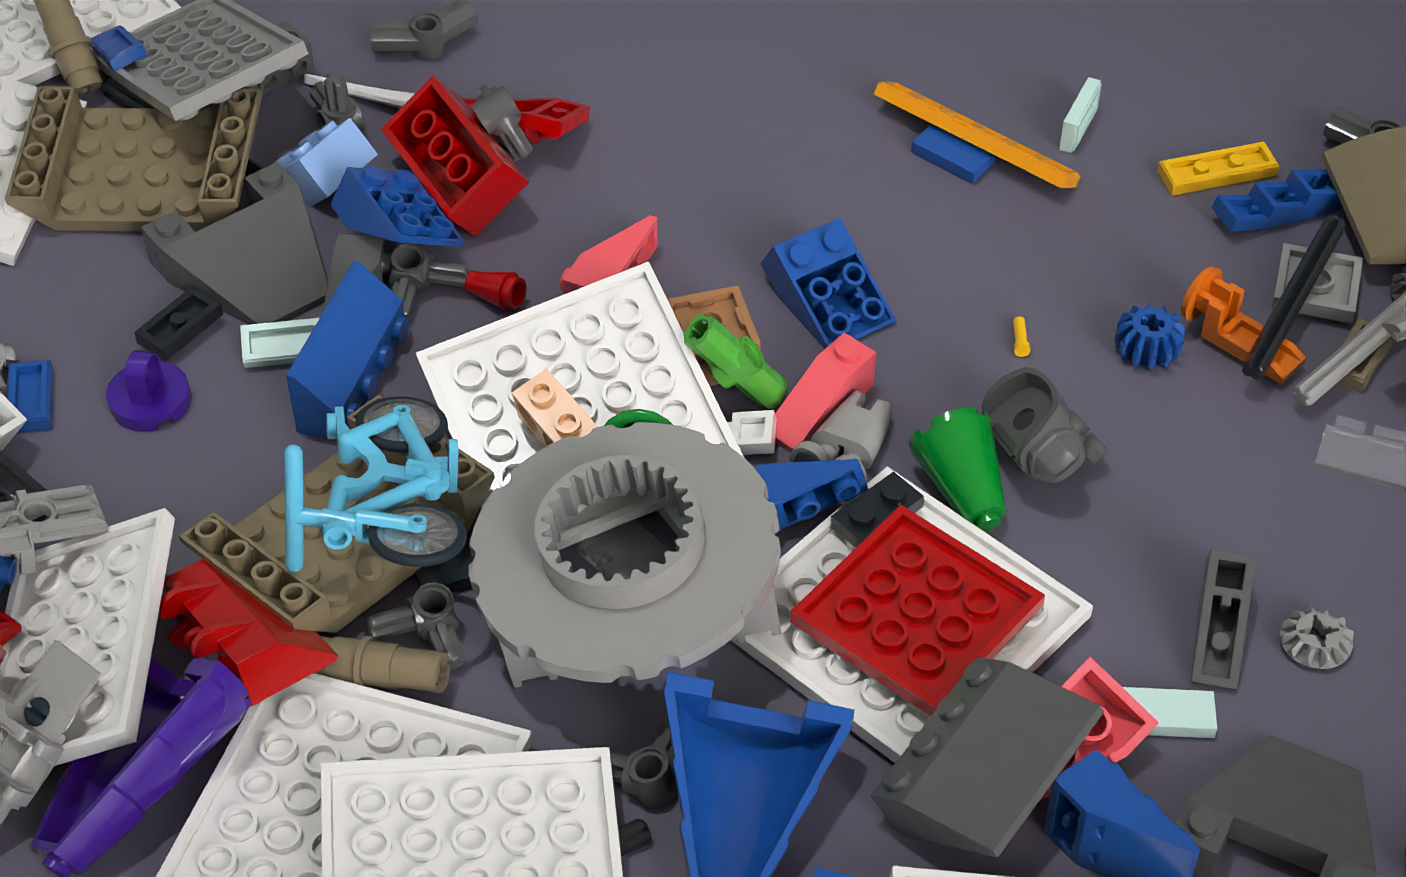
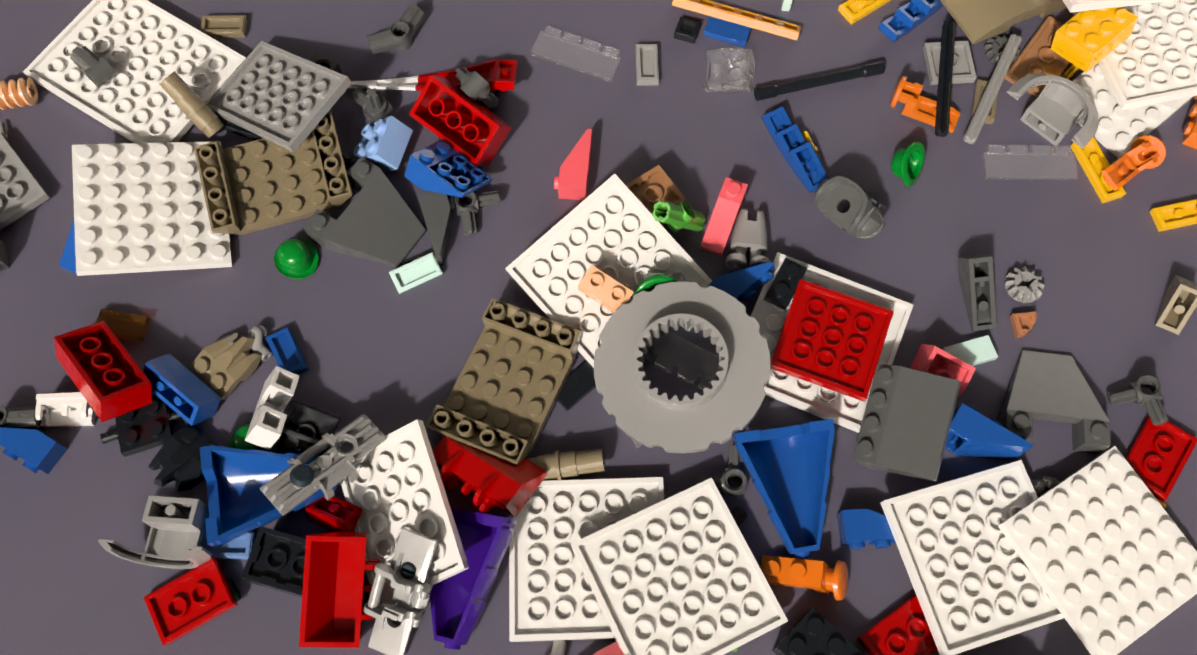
camera: 20 degrees left, 20 degrees up
(113, 276) = (296, 258): none -> green hat
(118, 47) = (225, 101): blue tile -> none
(148, 392) = (354, 331): dark purple tile -> none
(178, 323) = (350, 279): black plate -> none
(346, 351) = (460, 275): blue slope -> none
(397, 532) = (567, 398): medium azure piece -> none
(436, 627) = (570, 429): dark grey axle -> none
(501, 289) = (521, 199): red cone -> none
(692, 125) = (570, 53): none -> clear windscreen
(754, 431) = (698, 250): white plate -> none
(797, 166) = (646, 64): none -> light grey tile
(827, 284) = (699, 143): blue slope -> none
(886, 136) = (687, 30): none -> black tile
(930, 202) = (730, 70): none -> clear slope
(963, 464) = (819, 242): green cone -> none
(986, 325) = (794, 149): none -> blue slope
(1149, 336) = (878, 124): blue gear -> none
(1162, 259) = (774, 90): none -> black piece
(1179, 400) = (908, 163): none -> green hat
(1290, 695) = (1023, 323): none -> nougat tile

